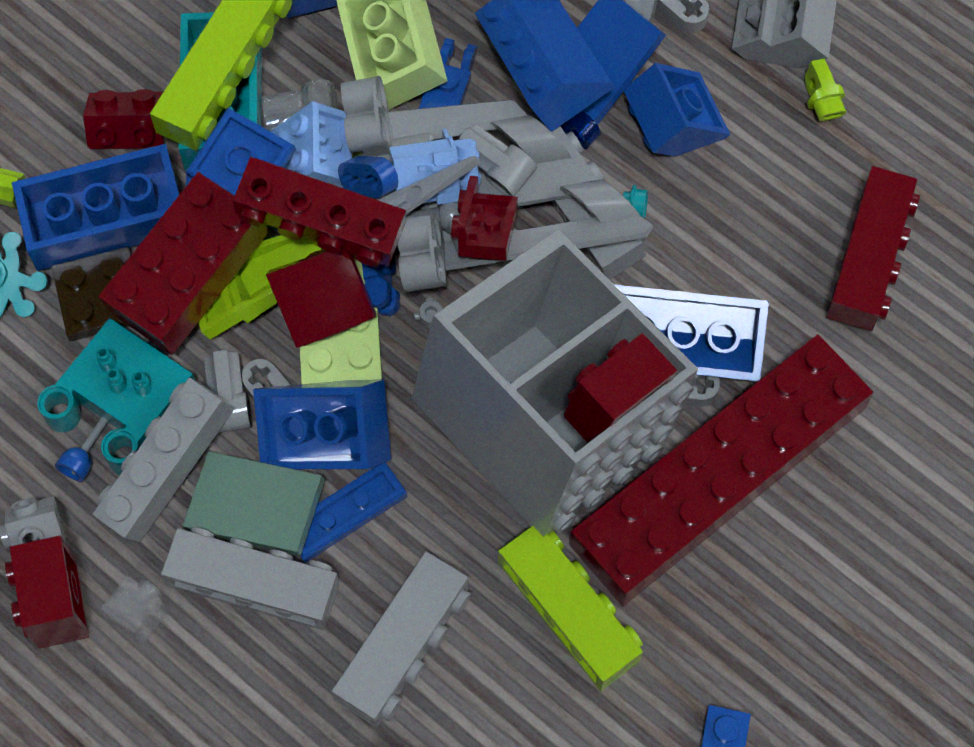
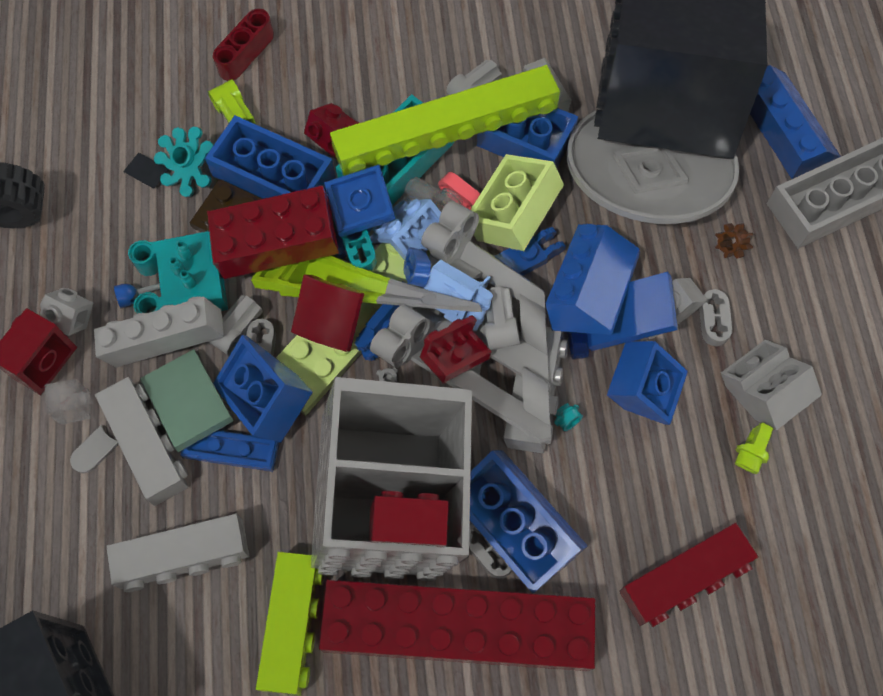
camera: 45 degrees right, 0 degrees up
(206, 637) = (92, 451): none -> light grey piece
(308, 70) = (463, 189): none -> coral beam
(319, 212) = (357, 262): dark red brick -> none

